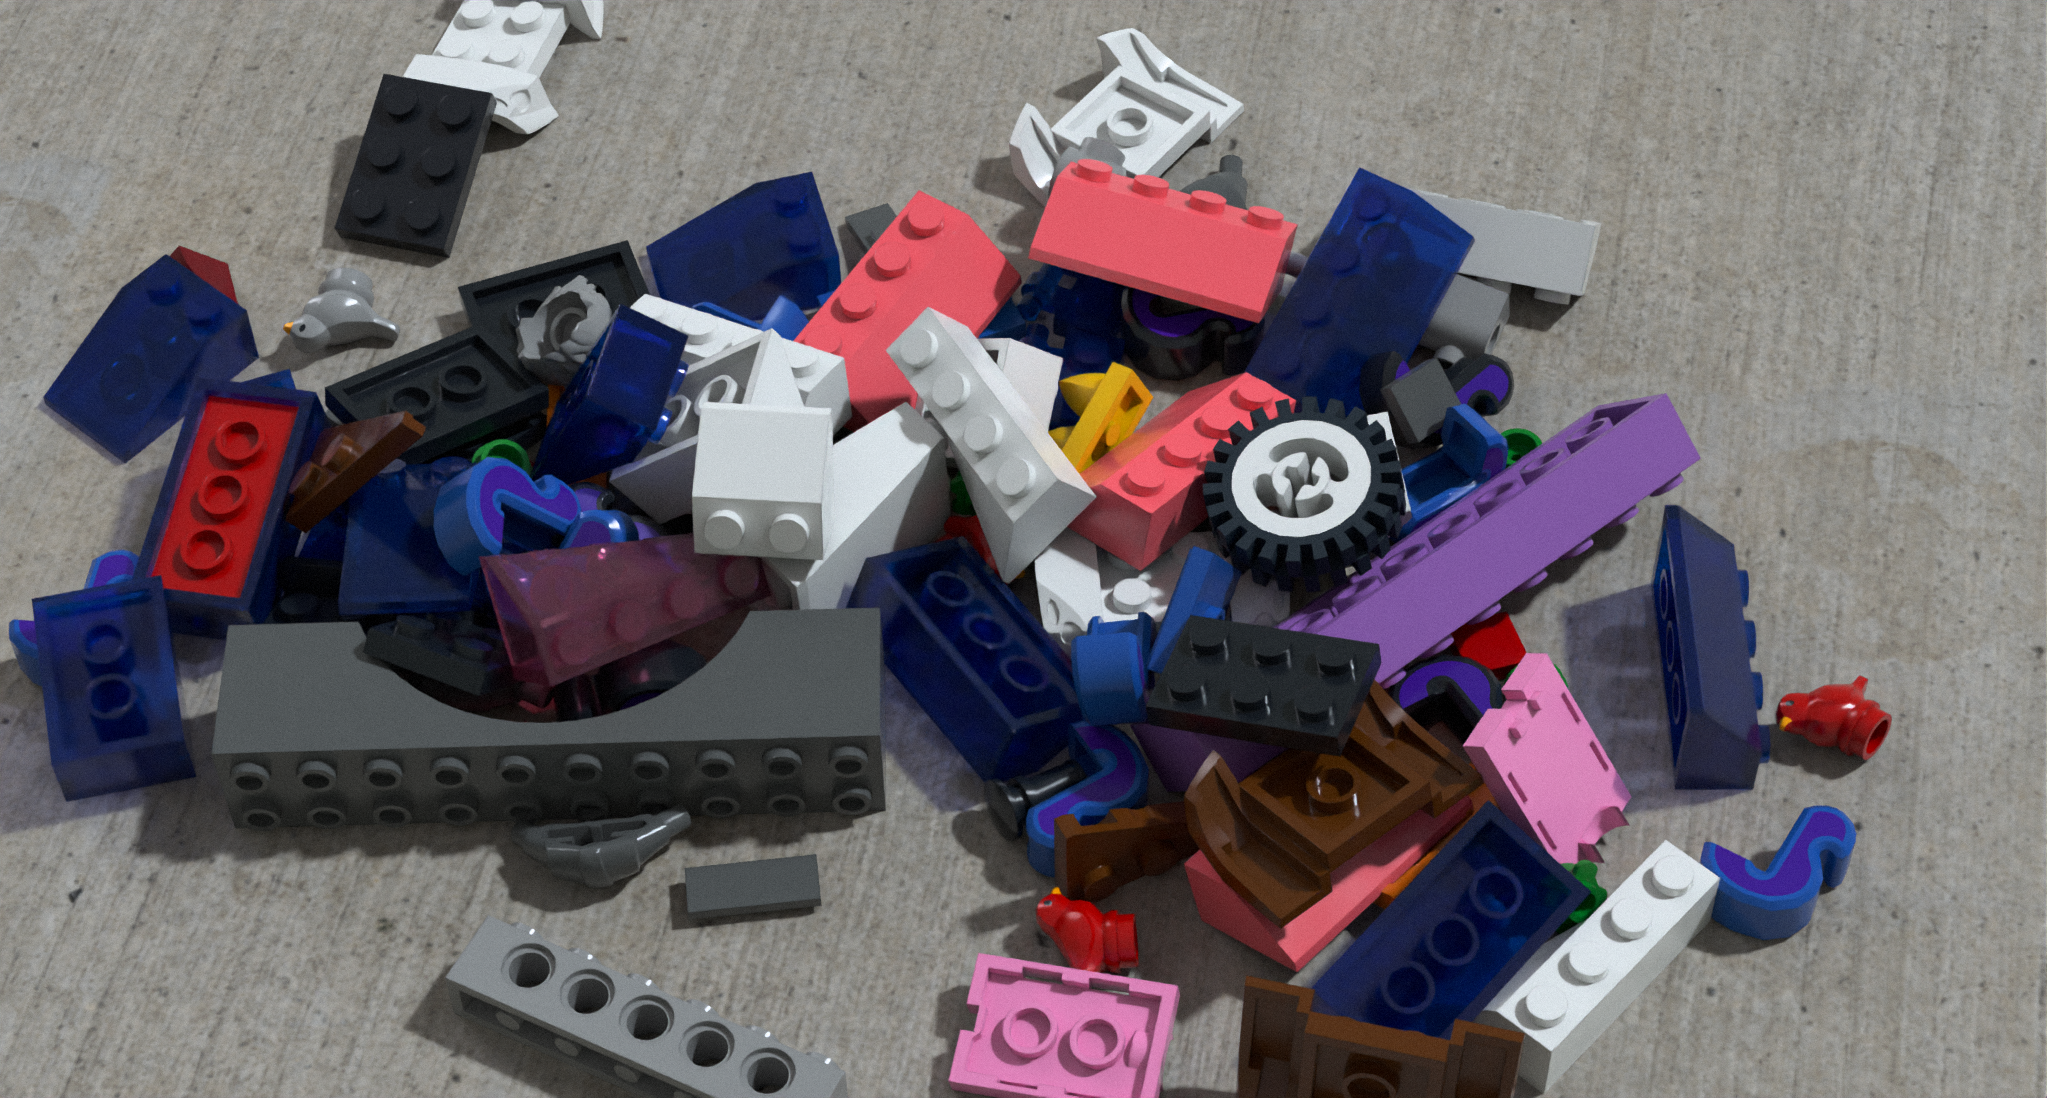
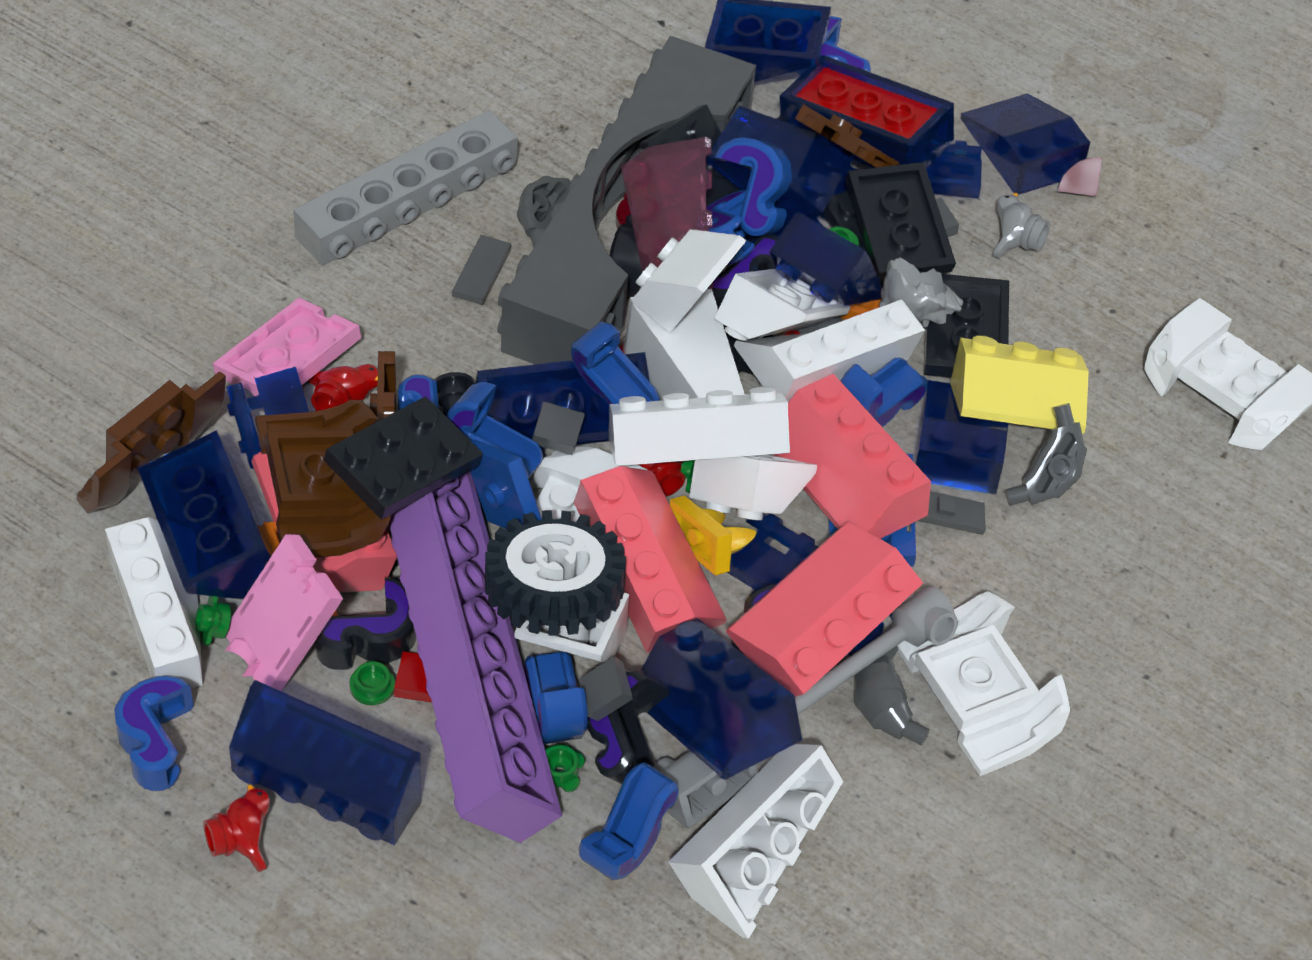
camera: 110 degrees right, 0 degrees up
(416, 165) = (1128, 291): black plate -> none
(667, 201) = (1018, 382): none -> light yellow slope
(755, 148) = (1056, 464): none -> dark grey piece
(940, 559) = (607, 367): none -> blue animal
(1041, 618) = (558, 428): none -> dark grey tile
(1201, 965) = (278, 394): none -> clear blue plate
(1561, 346) = (631, 823): none -> blue animal

